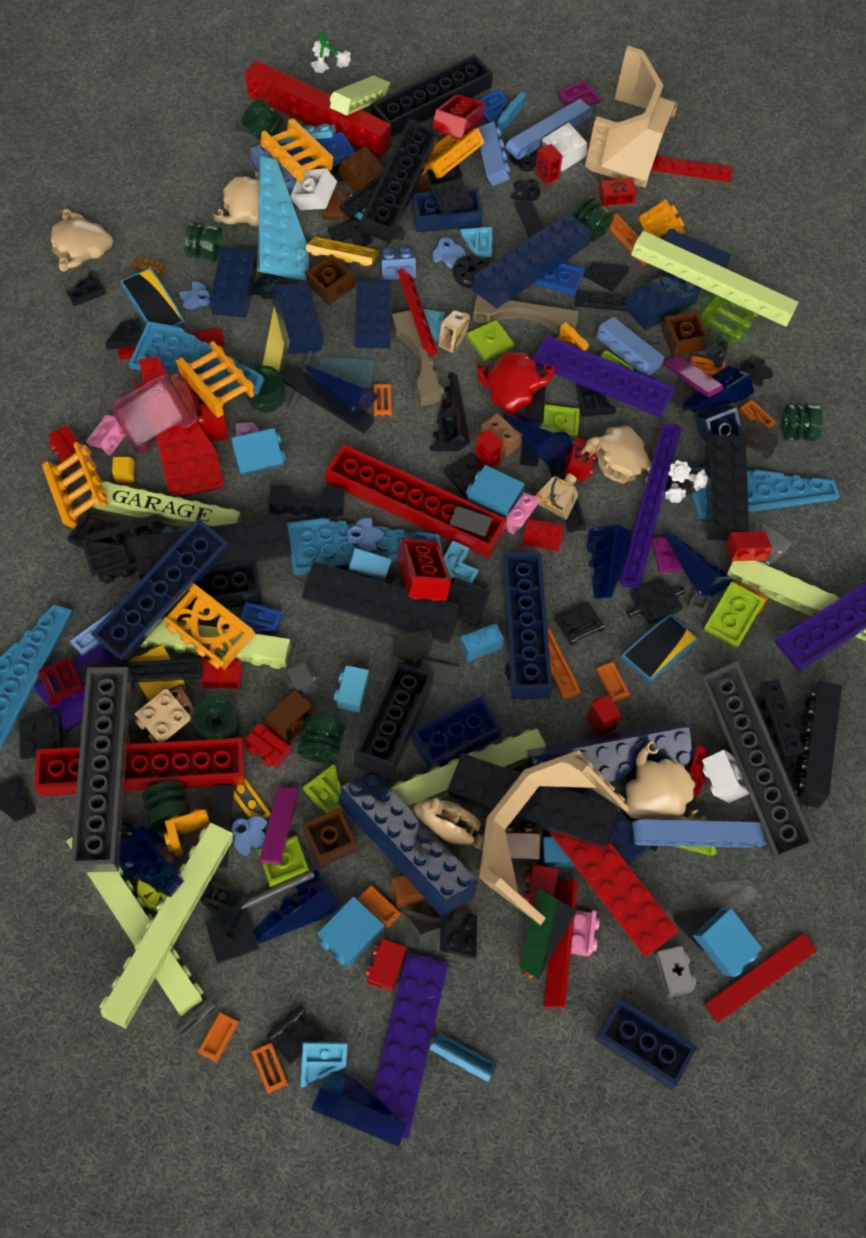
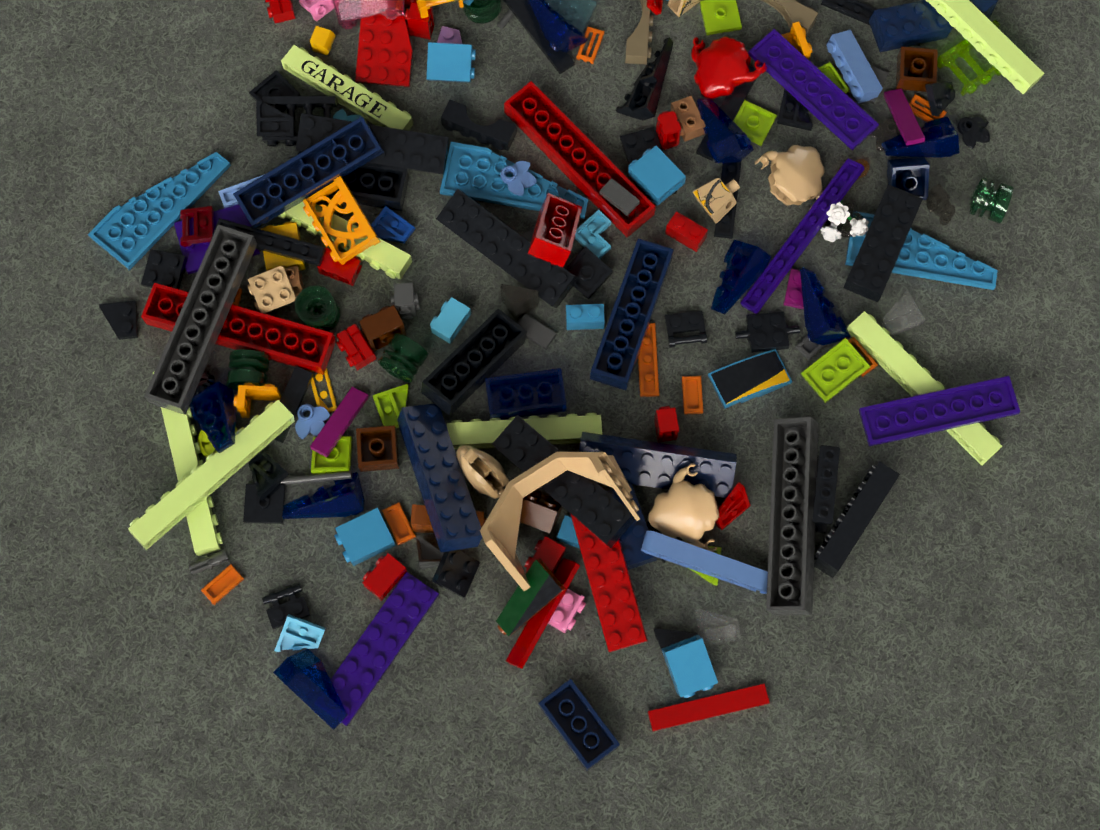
camera: 25 degrees right, 10 degrees up
(59, 486) = (259, 37): light orange fence -> none
(276, 1086) = (255, 642): orange tile -> none
(369, 564) = (510, 207): dark azure brick -> none
(463, 1056) = (419, 677): dark azure plate -> none
(521, 512) = (674, 201): bright pink bracket -> none
(577, 463) = (749, 173): red brick -> none
(672, 982) = (630, 662): light grey brick -> none
(724, 776) = (752, 519): white brick -> none
(748, 546) = (876, 309): red brick -> none
(750, 415) = (958, 192): orange tile -> none

